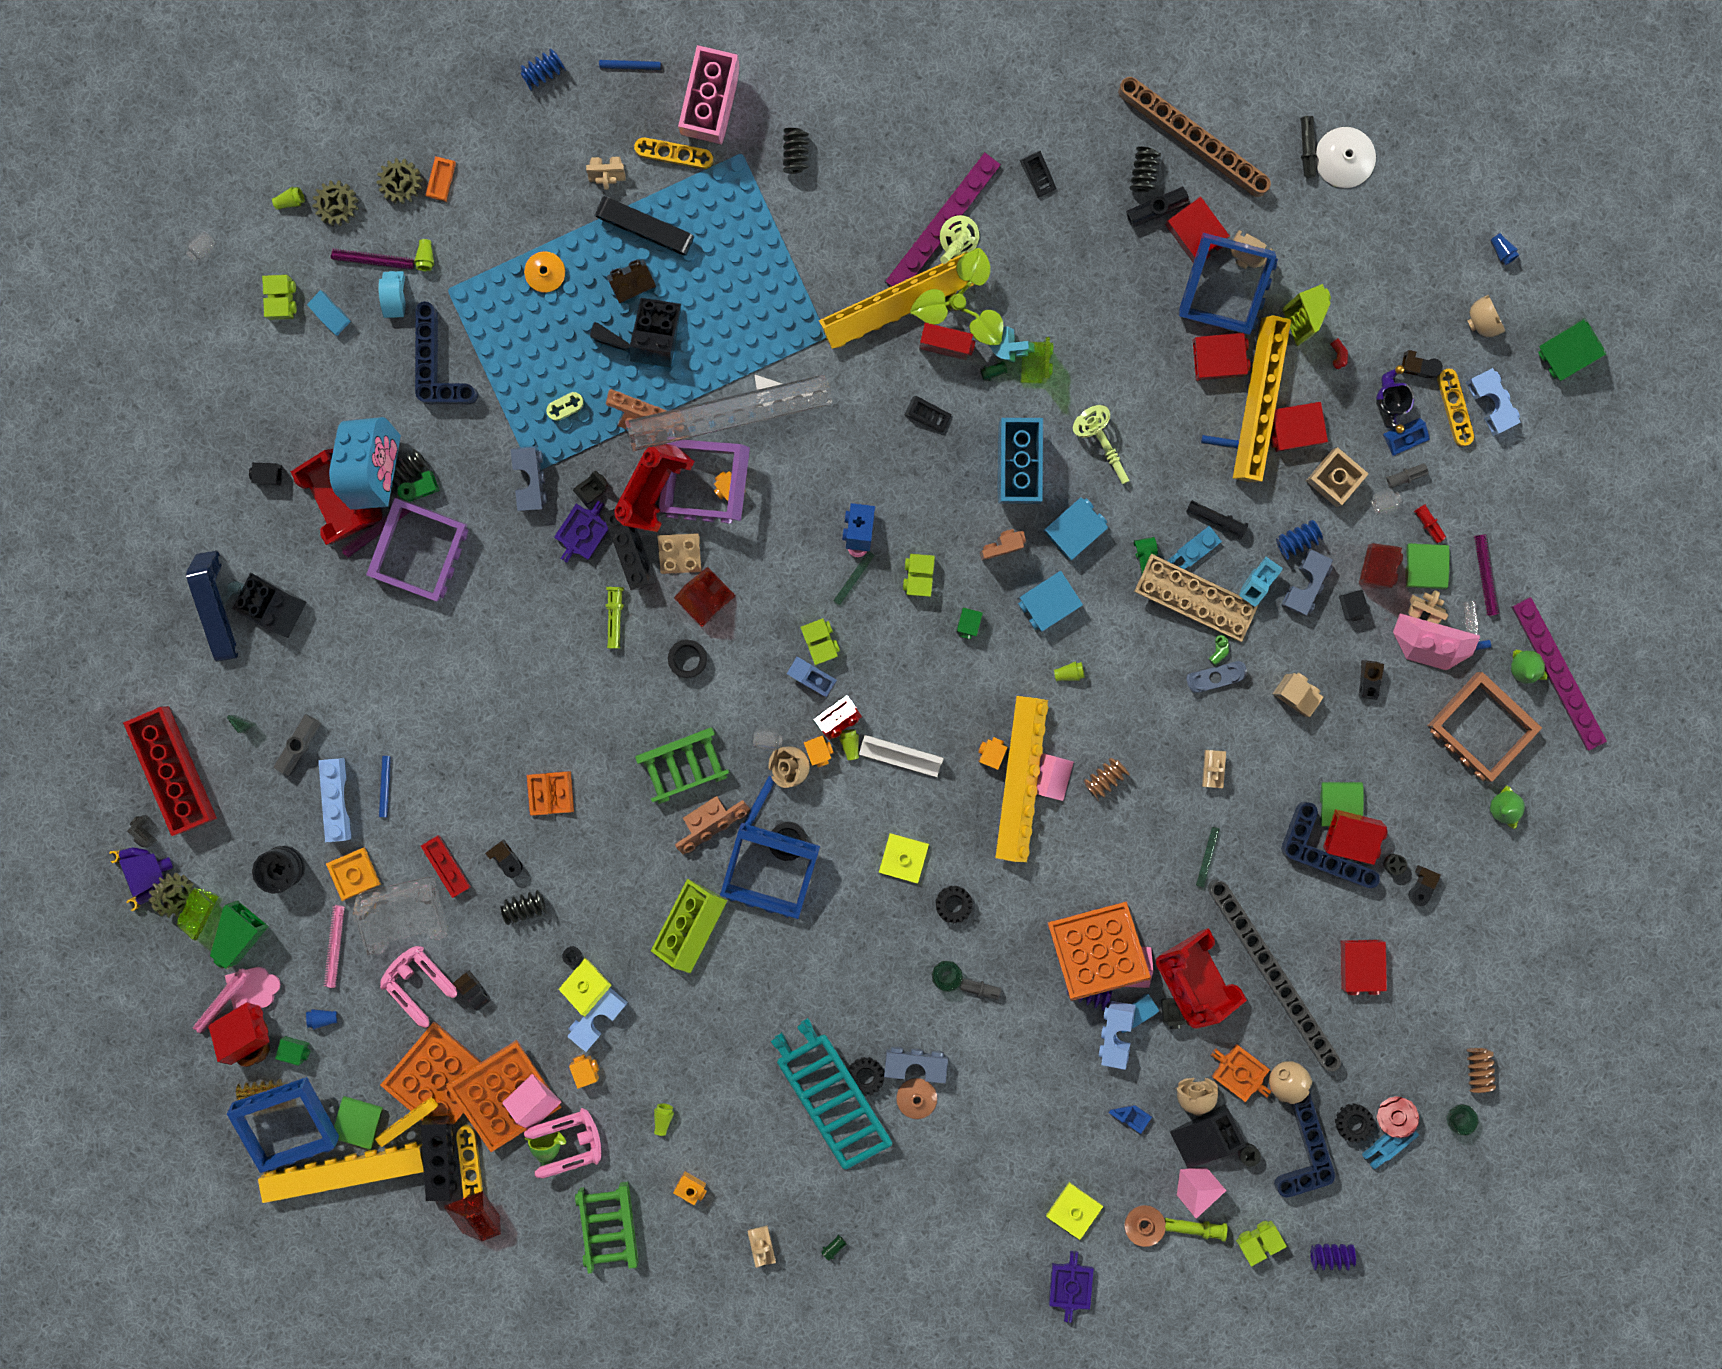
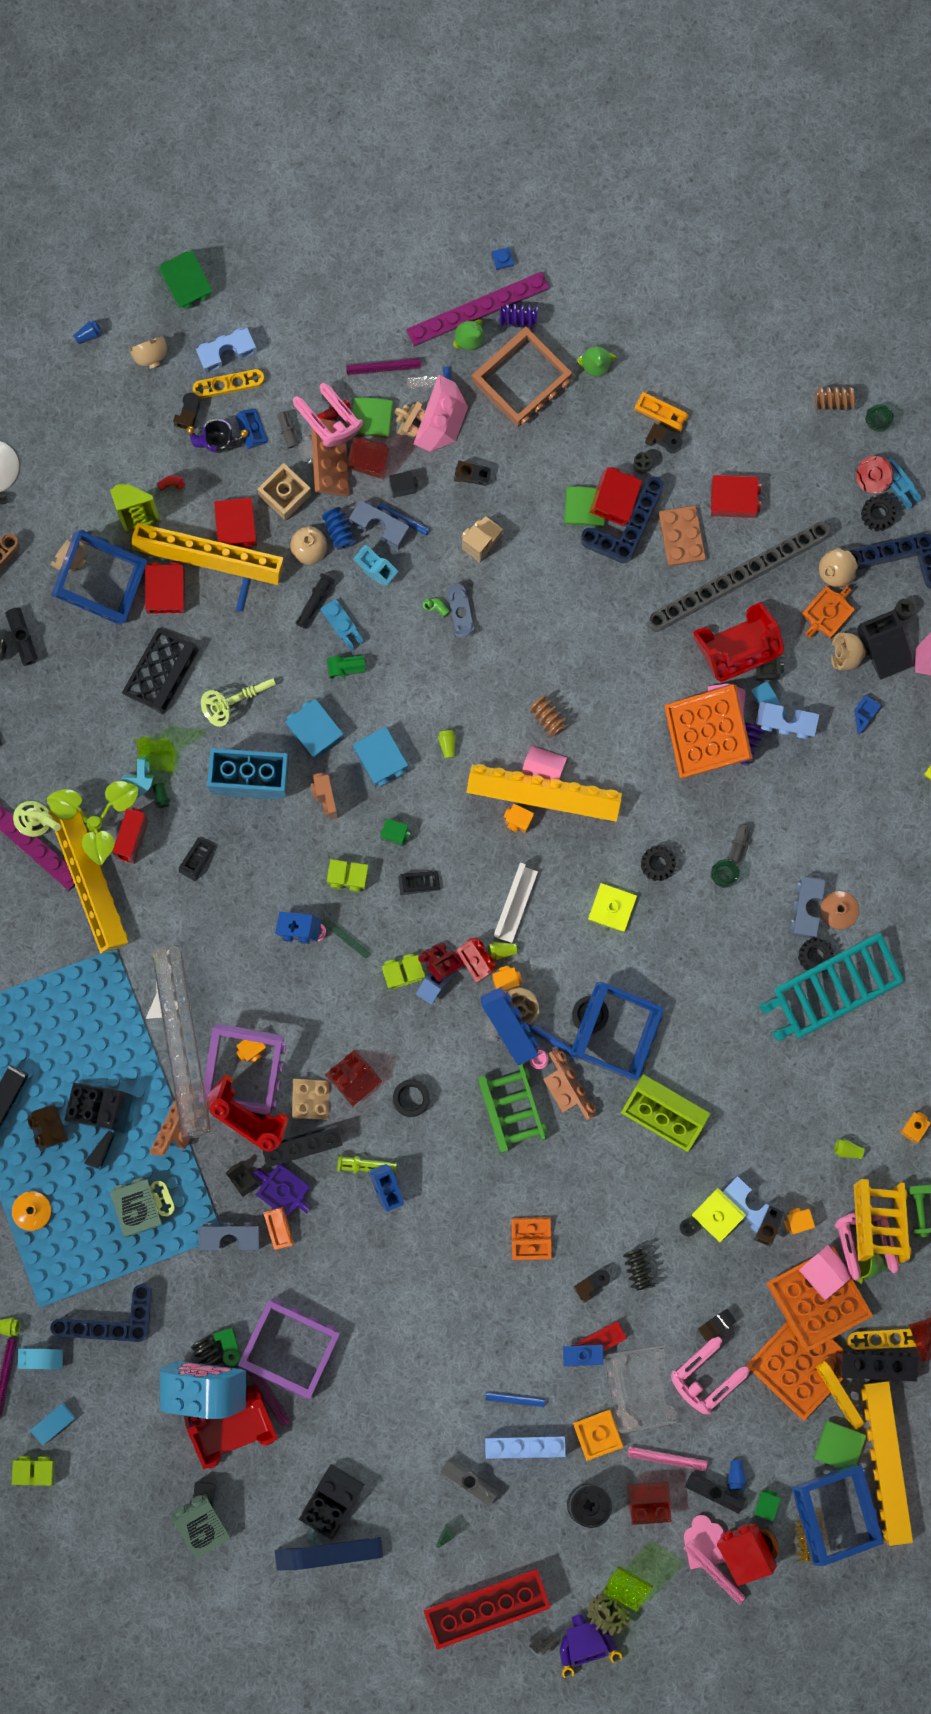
camera: 90 degrees left, 10 degrees down
(232, 471) = (200, 1526): none -> sand green panel
(235, 934) = (651, 1551): green slope -> none
(287, 930) = (649, 1502): none -> clear red slope
(297, 1009) = (726, 1499): none -> black piece
(431, 854) = (583, 1355): none -> blue plate
(543, 530) = (278, 1228): none -> orange tile
(552, 379) = (135, 1207): none -> sand green panel
(574, 1042) = (769, 1226): none -> leg
(583, 1140) = (865, 1229): none -> yellow fence
(590, 639) = (386, 1187): none -> blue brick
(737, 789) = (540, 1061): none -> bright pink plate
(766, 757) = (510, 1026): none -> blue brick
(826, 683) = (443, 966): none -> dark red plate
(911, 635) = (419, 889): none -> black slope
(1127, 376) = (175, 675): none -> black fence
(1190, 225) = (41, 606): red brick -> none
(1195, 598) = (386, 624): tan plate -> none
(1207, 856) = (626, 629): clear green bar -> none
(1214, 769) = (545, 618): tan hips -> none
(1279, 508) = (308, 545): none -> tan cylinder
(1315, 910) = (681, 536): none -> nougat plate
(1319, 601) = (411, 523): none -> blue bar
(1379, 523) = (330, 465): none -> nougat plate
(1406, 534) = (341, 433): none -> bright pink piece
(1454, 881) = (661, 411): none -> light orange plate
(1553, 719) = (518, 316): none -> dark purple piece
(1618, 697) = (502, 258): none -> blue plate

